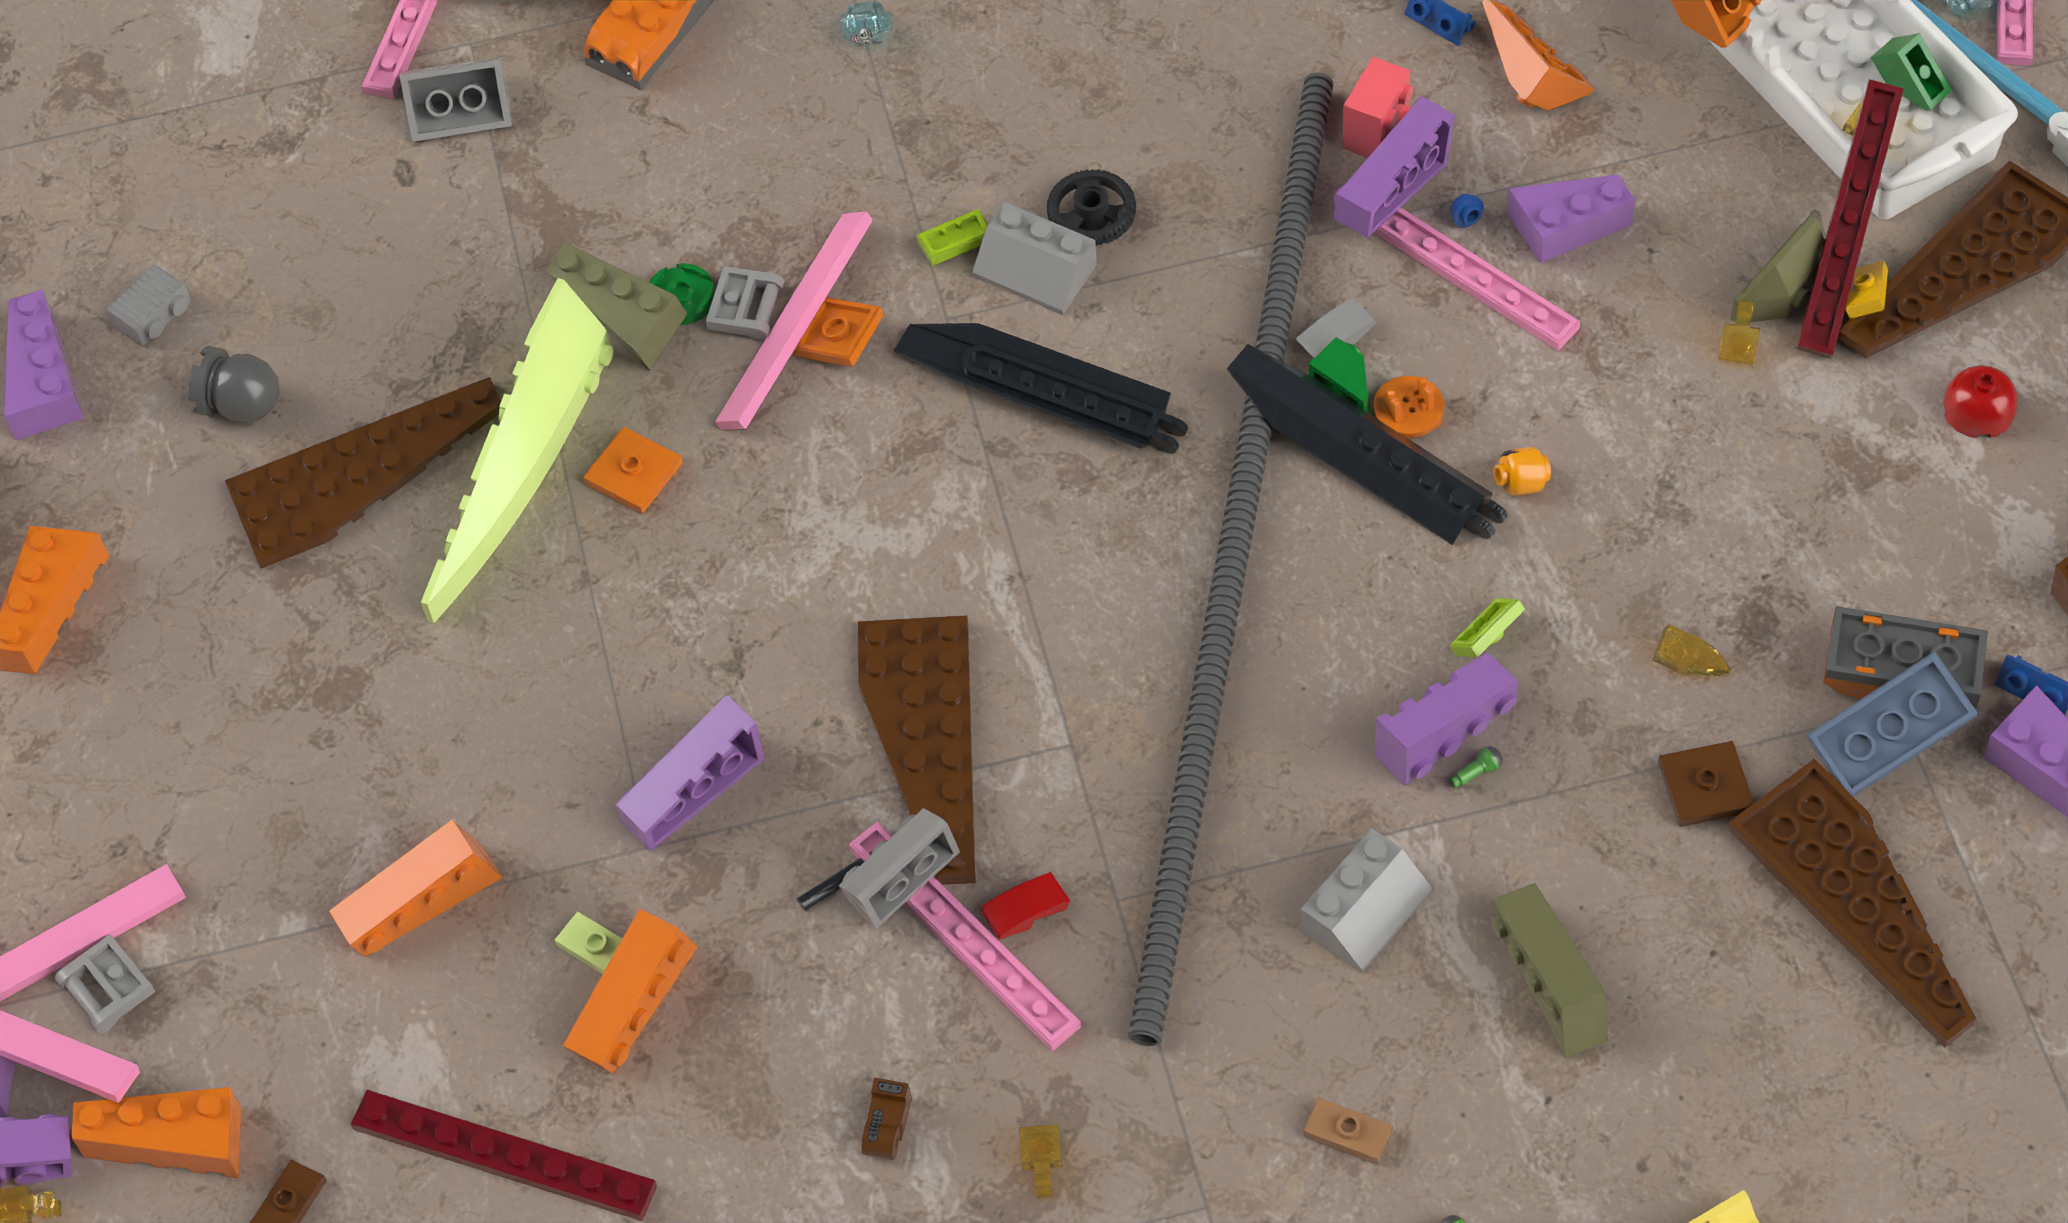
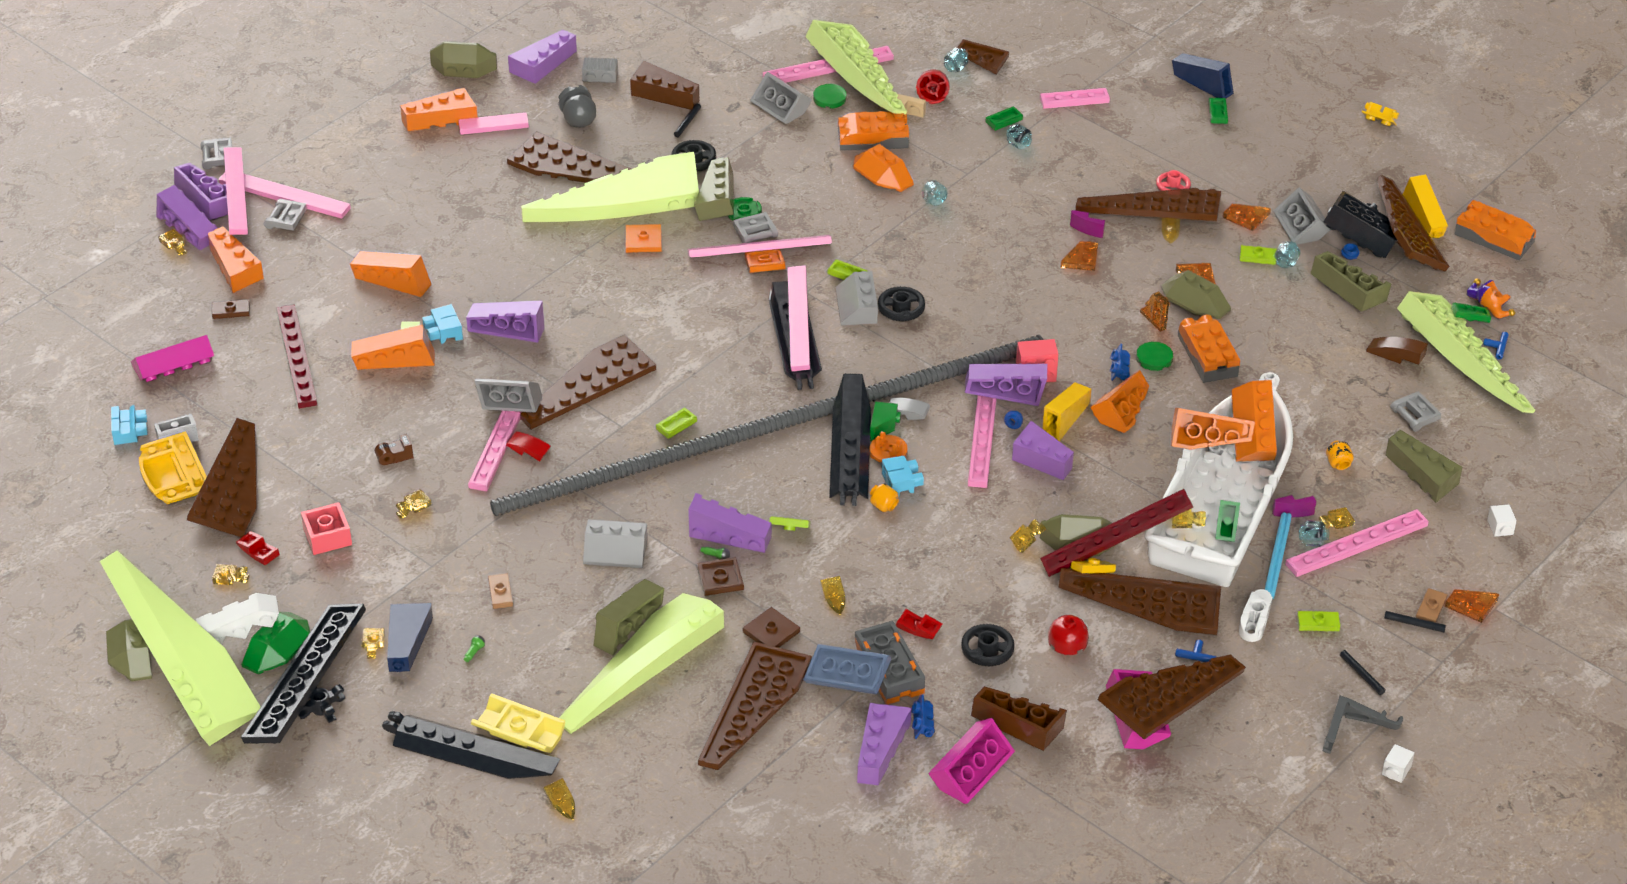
camera: 50 degrees right, 15 degrees down
(139, 533) = (493, 123): none -> bright pink tile
(280, 237) = (663, 86): none -> reddish brown wedge
(385, 252) = (687, 120): none -> black bar
(492, 290) = (696, 146): none -> black wheel
(500, 30) = (829, 95): none -> green tile
(620, 877) = (443, 324): none -> medium azure hips
(742, 57) = (883, 168): none -> orange wedge
(1030, 358) = (798, 318): none -> bright pink tile
(1132, 661) = (676, 423): none -> lime plate
(1475, 411) = (898, 474): none -> medium azure hips
(1504, 133) = (1065, 410): none -> yellow slope
(1540, 790) = (720, 576): none -> reddish brown plate
(1629, 931) = (655, 646): none -> yellowish green wedge
(1828, 581) = (923, 627): none -> red slope
(1937, 526) = (988, 645): none -> black wheel

